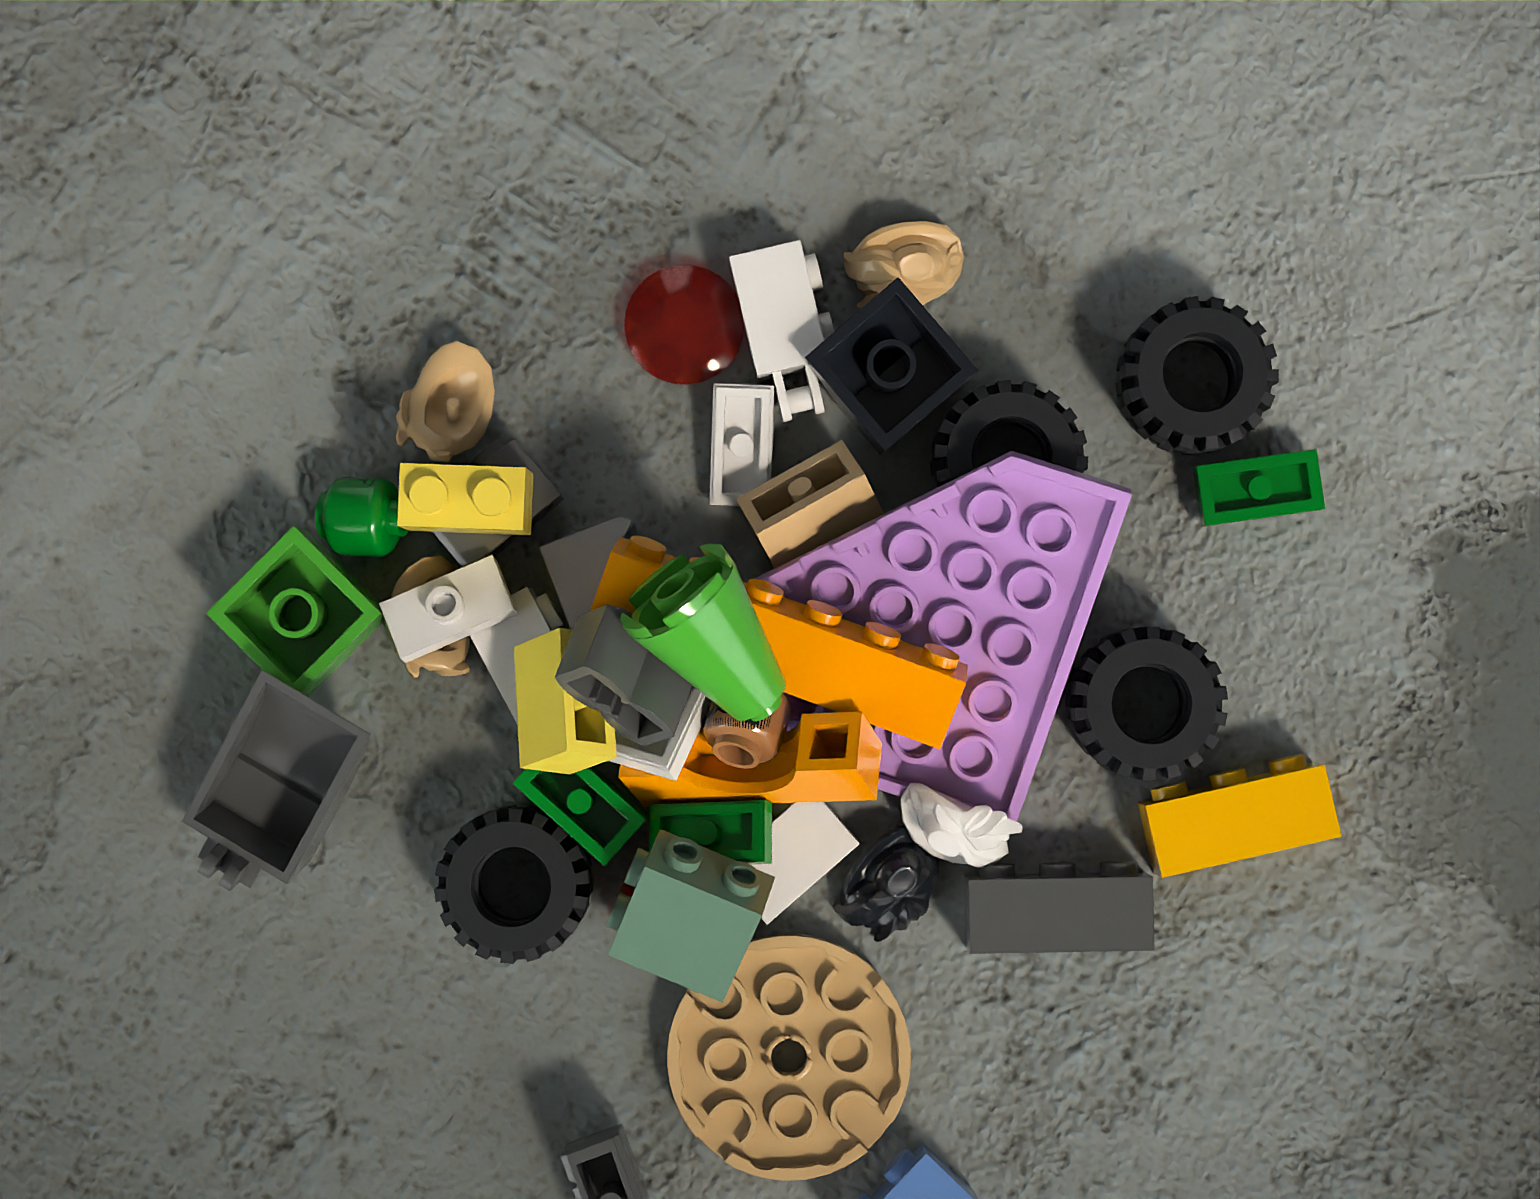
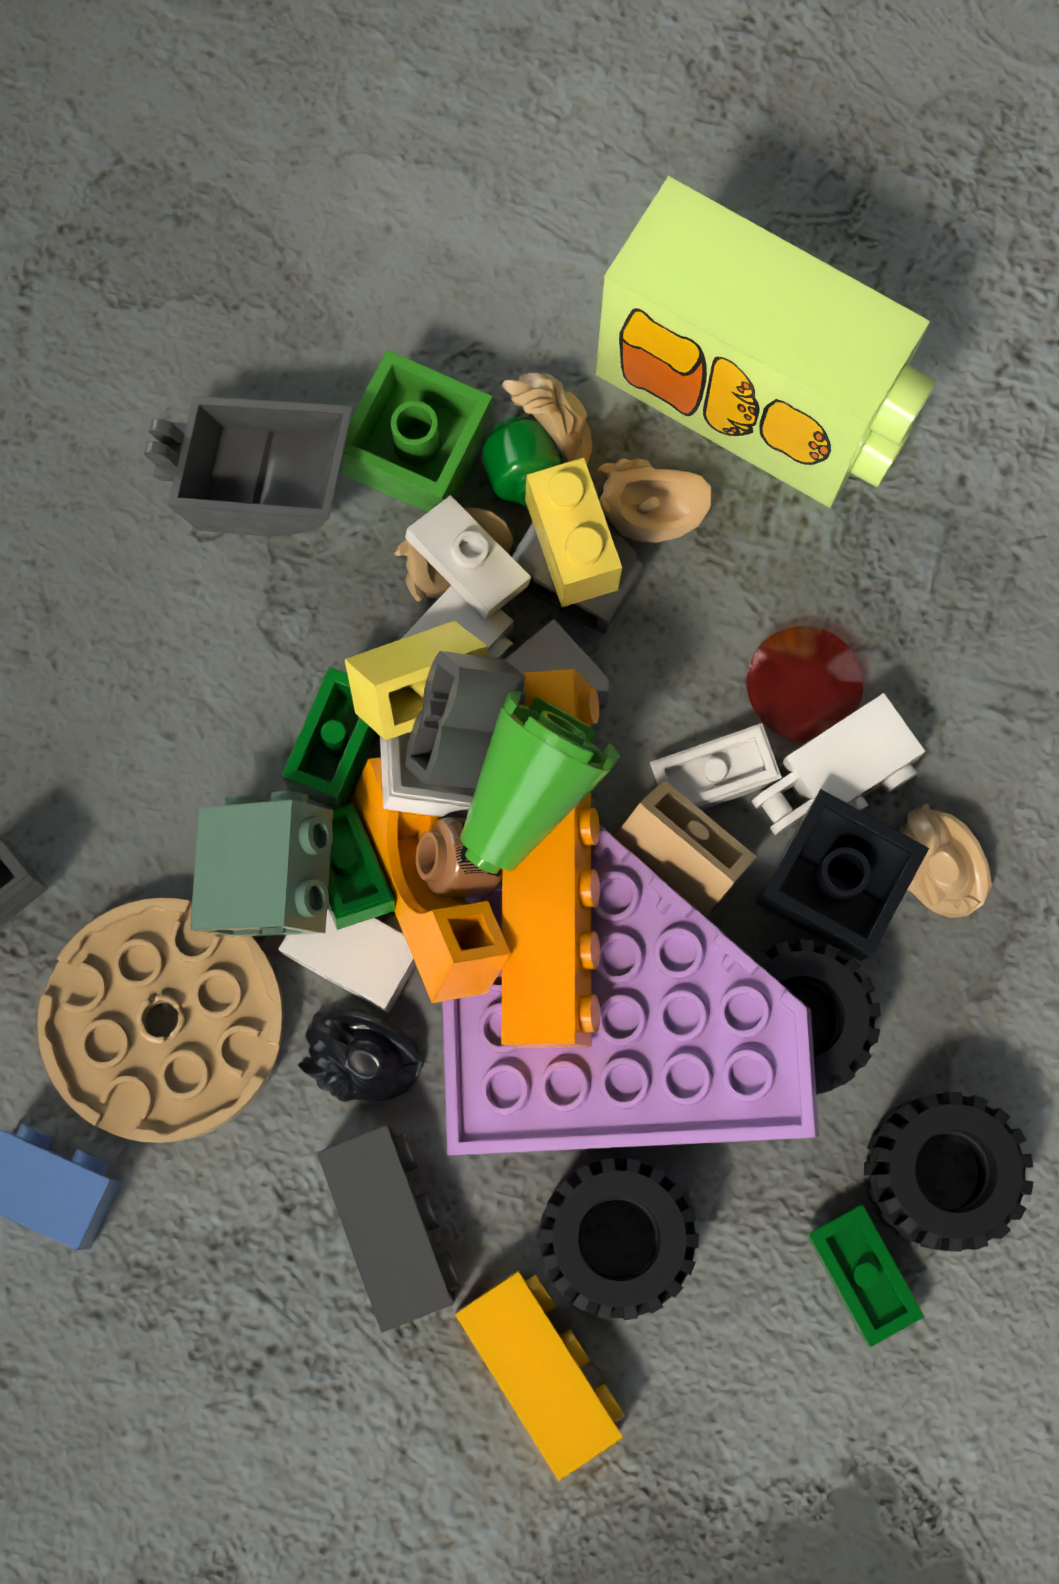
camera: 65 degrees right, 10 degrees down
(324, 464) = (556, 410): none -> tan hat
(349, 245) = (760, 345): none -> yellowish green brick
(482, 925) = (204, 675): black tyre -> none
(955, 829) = (430, 1098): white hat -> none

